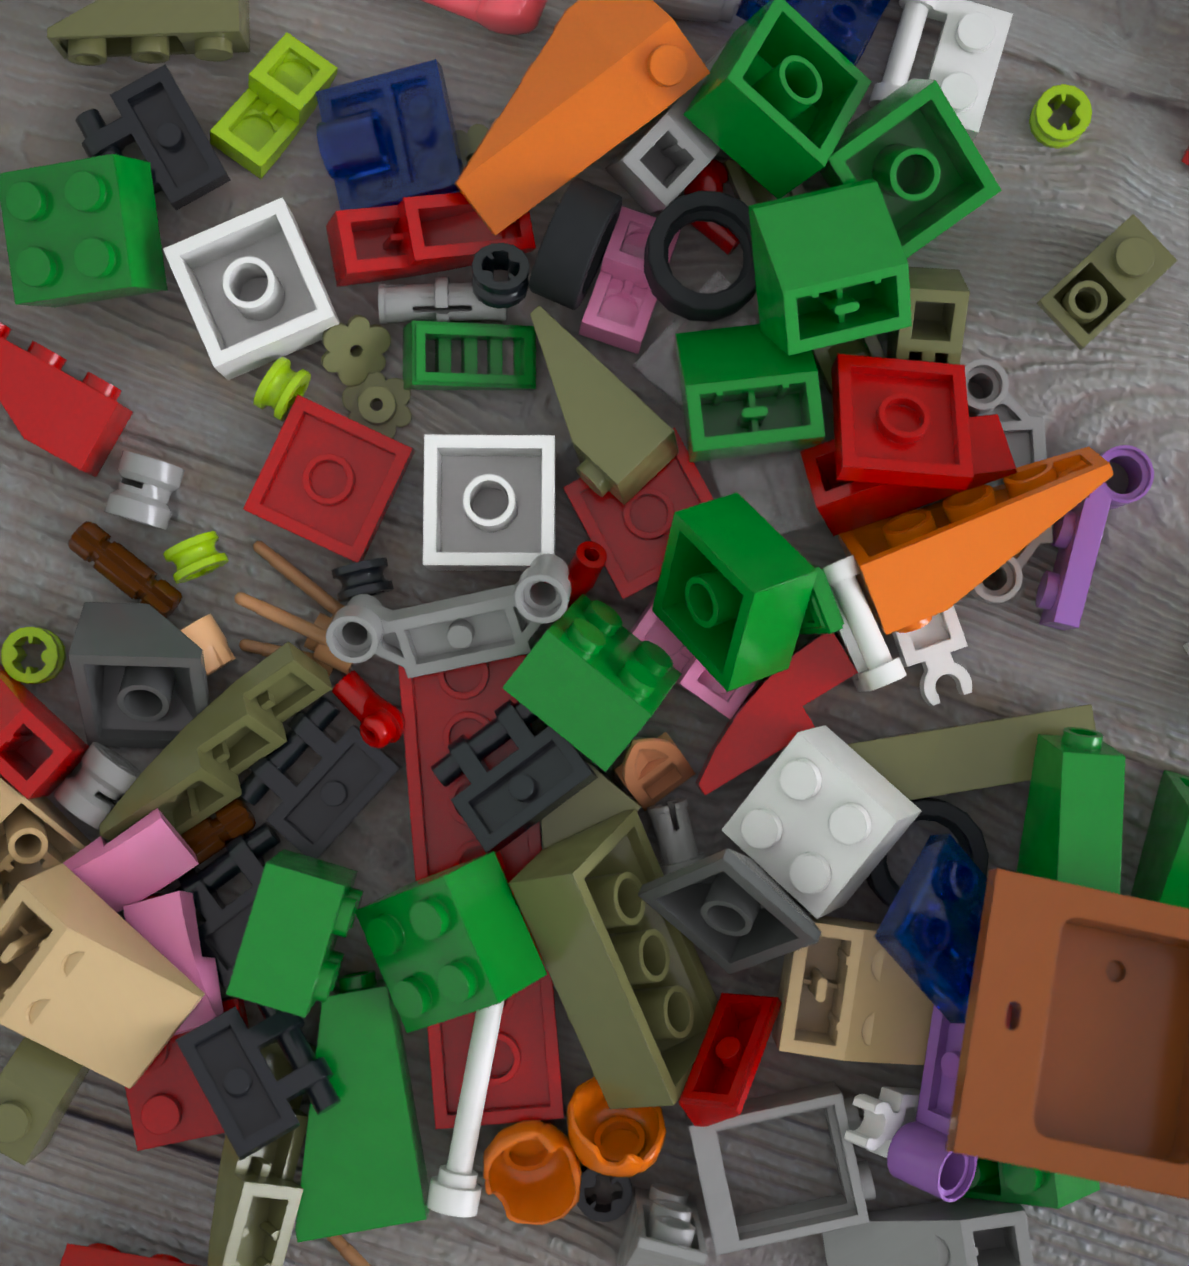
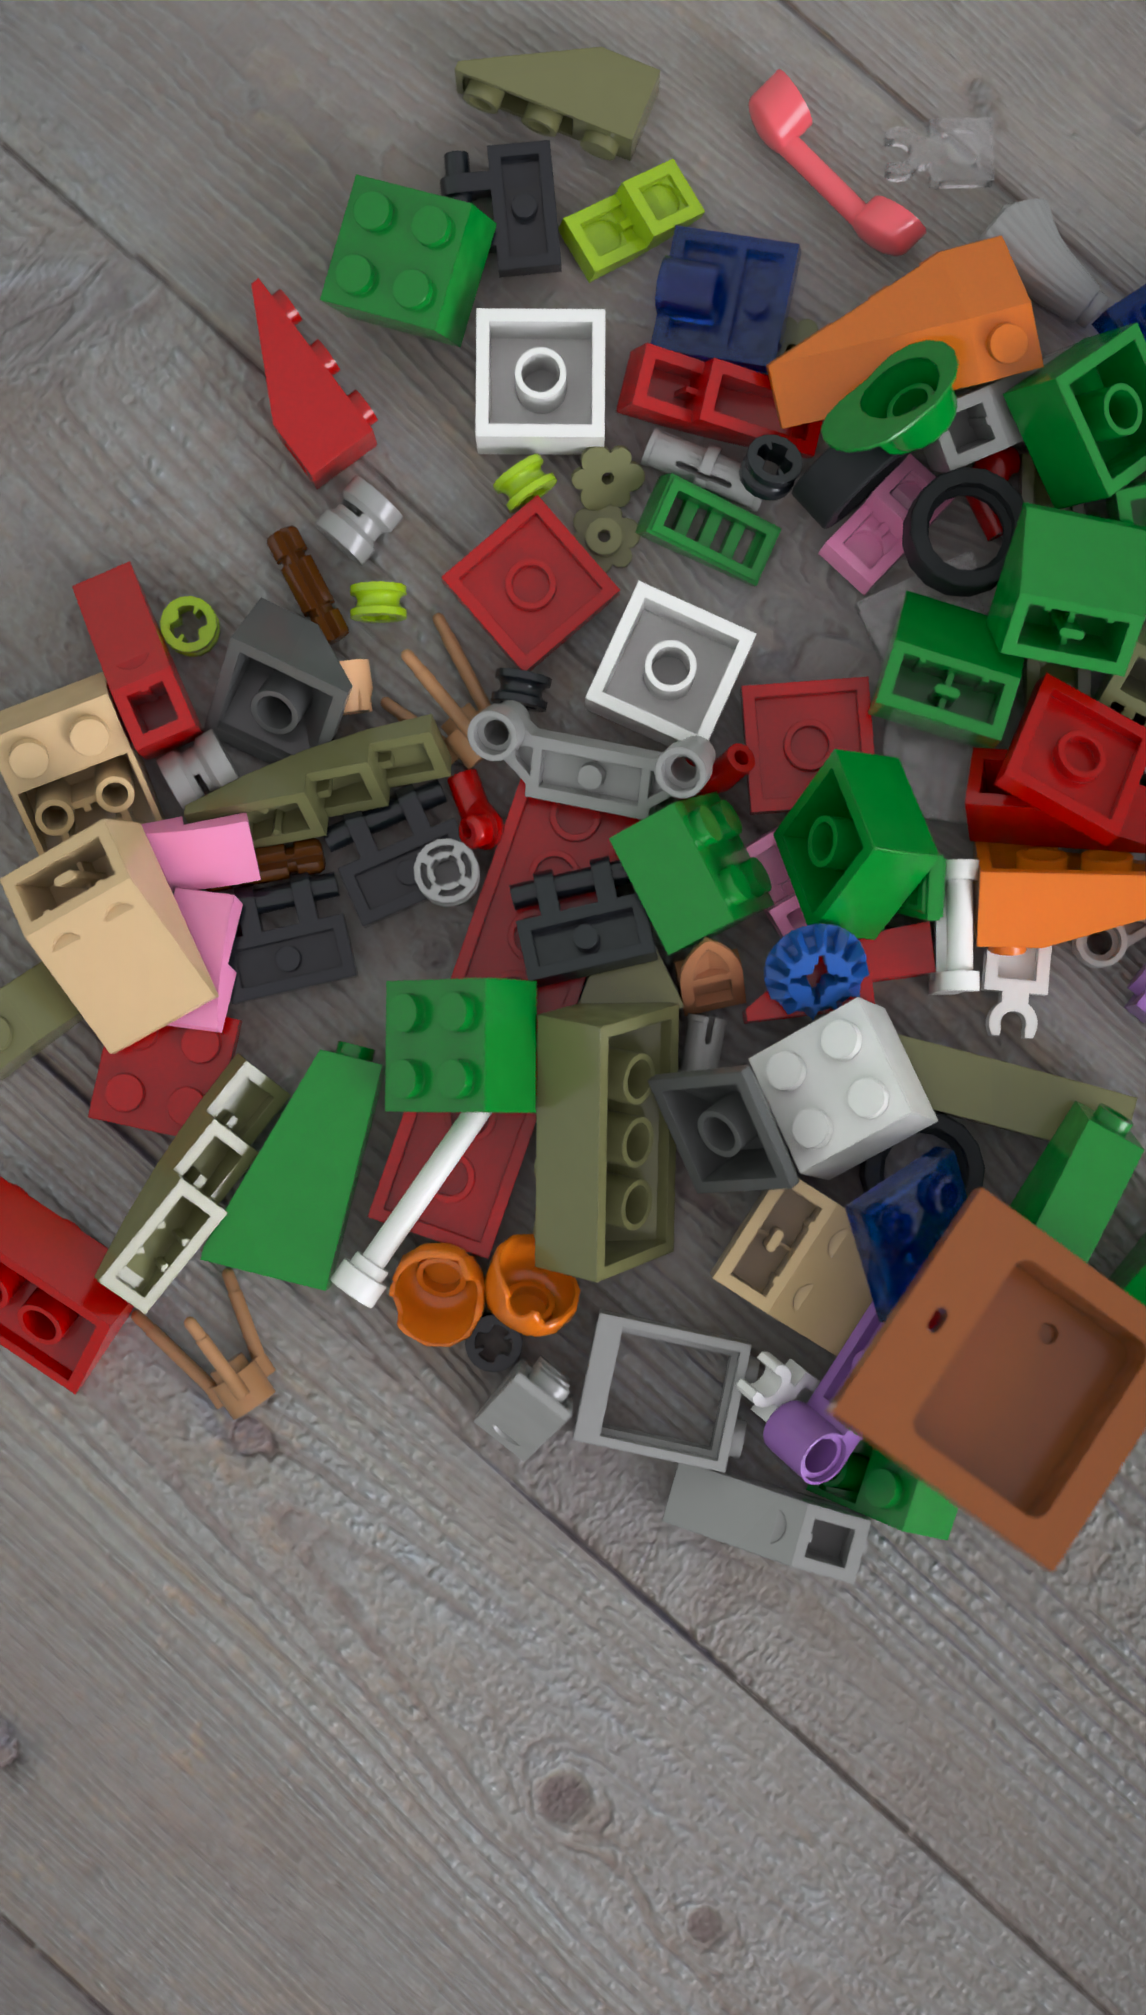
camera: 30 degrees right, 0 degrees up
(240, 1083) = (216, 1089): black plate -> none
(293, 931) = (325, 976): green brick -> none
(378, 783) = (451, 881): none -> light grey wheel
(593, 165) = (900, 404): none -> green piece
(611, 428) = (810, 651): olive slope -> none
(725, 716) = (798, 954): none -> blue gear
(728, 1058) = (663, 1266): red slope -> none

